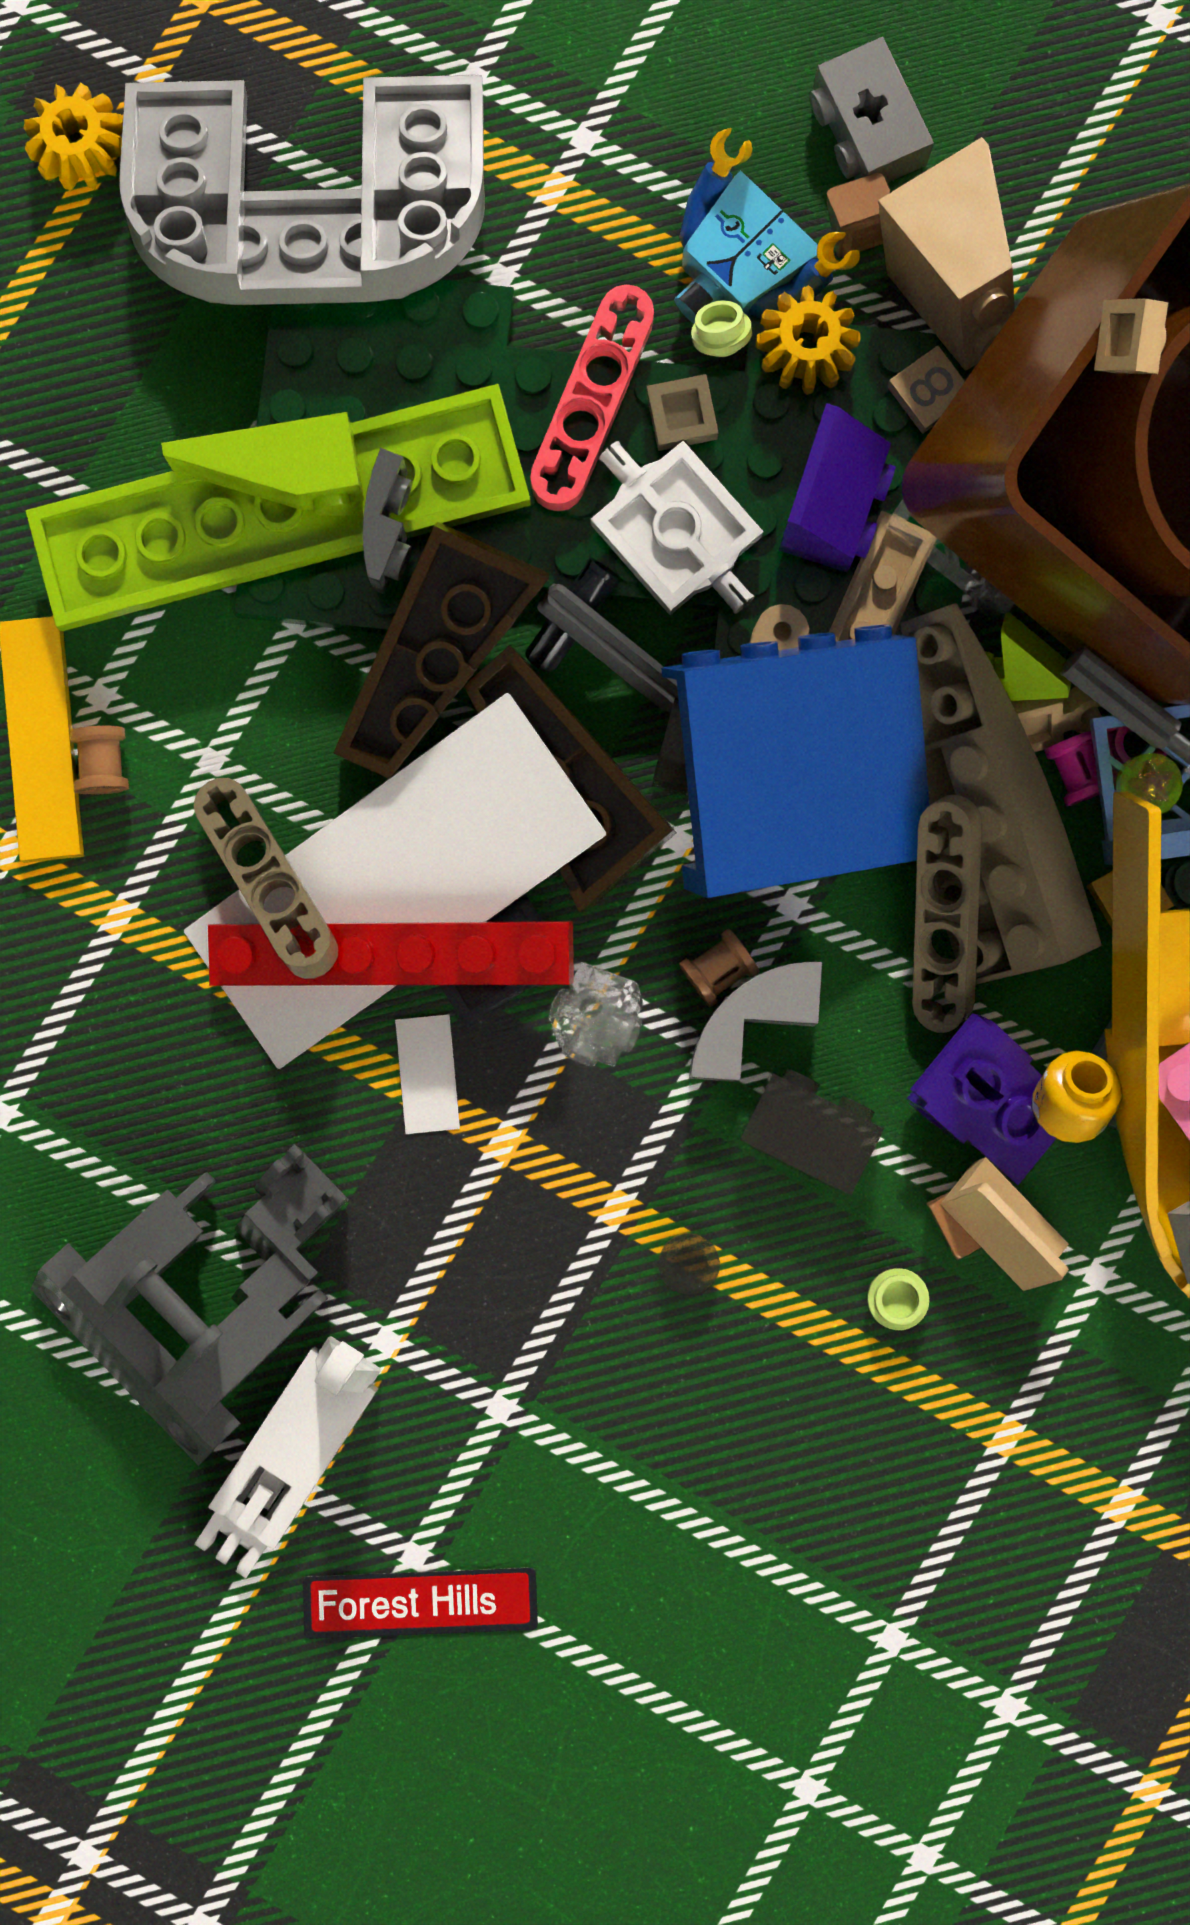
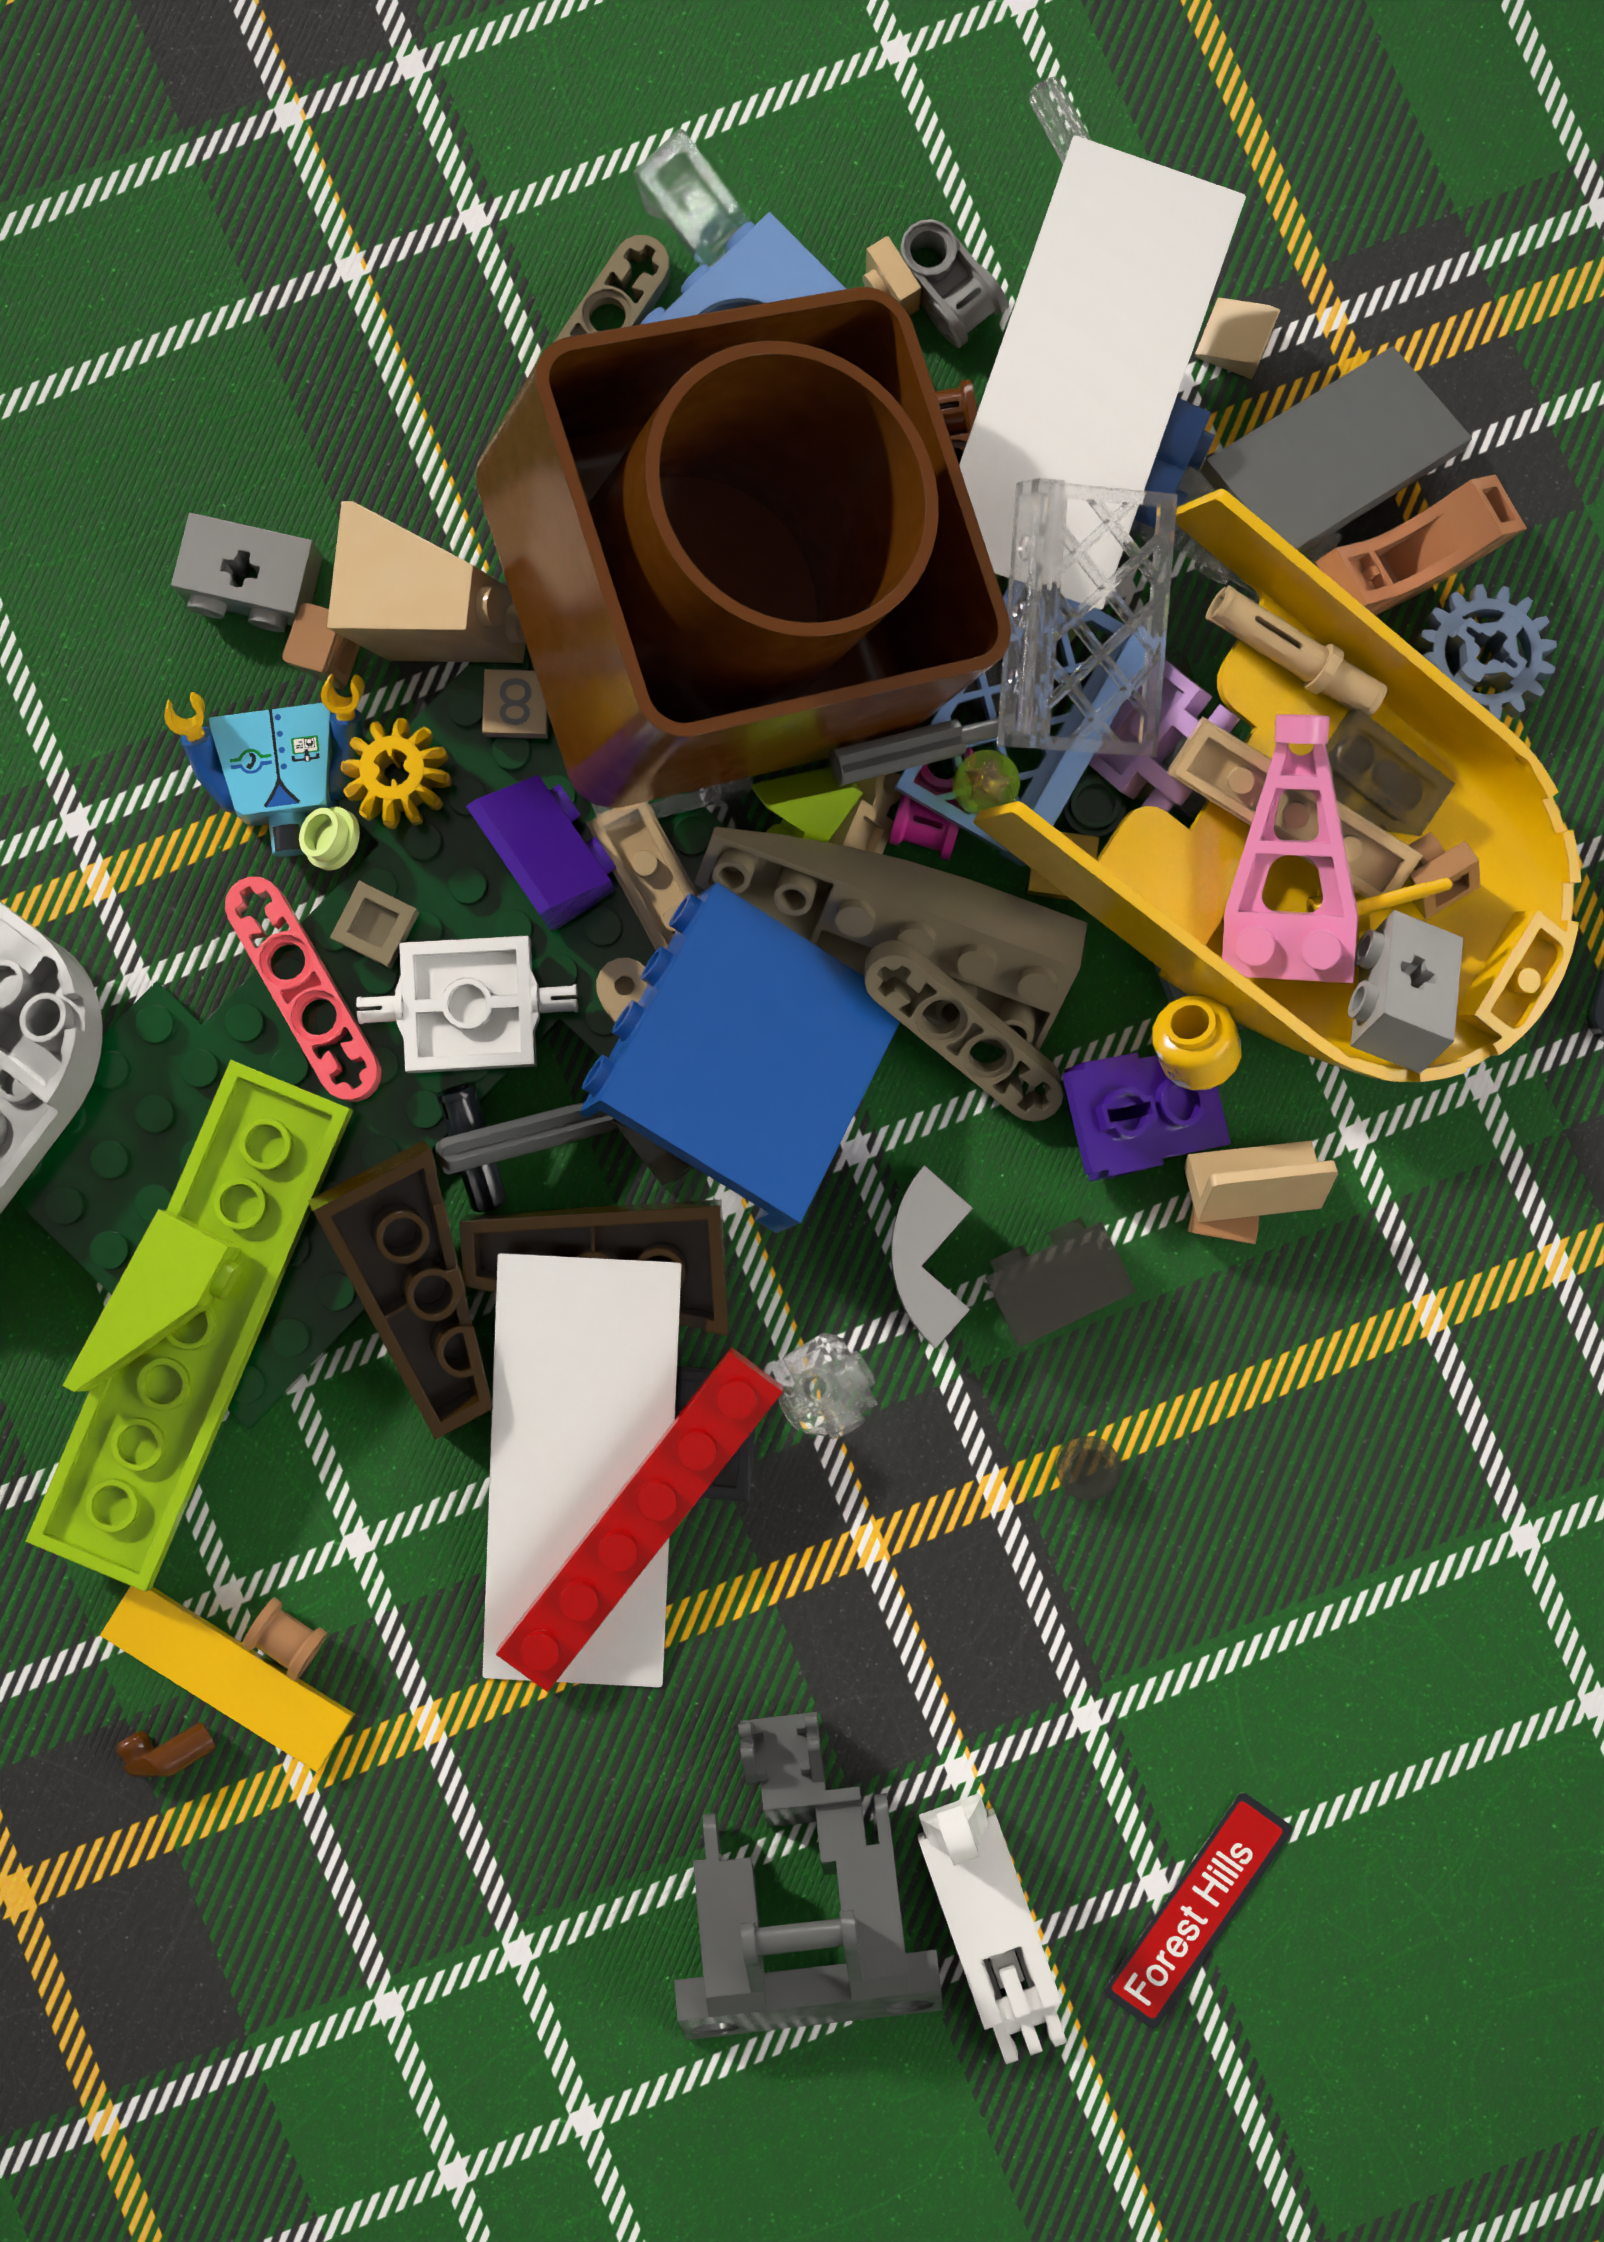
camera: 45 degrees left, 0 degrees up
(264, 877) = (493, 1578): dark tan beam -> none
(383, 537) = (288, 1260): dark grey slope -> none
(427, 1074) = (762, 1564): white sticker -> none
(719, 968) = (862, 1252): medium nougat bush -> none
(898, 1299) = (1249, 1316): yellowish green plate -> none
(1131, 336) = (620, 533): tan plate -> none

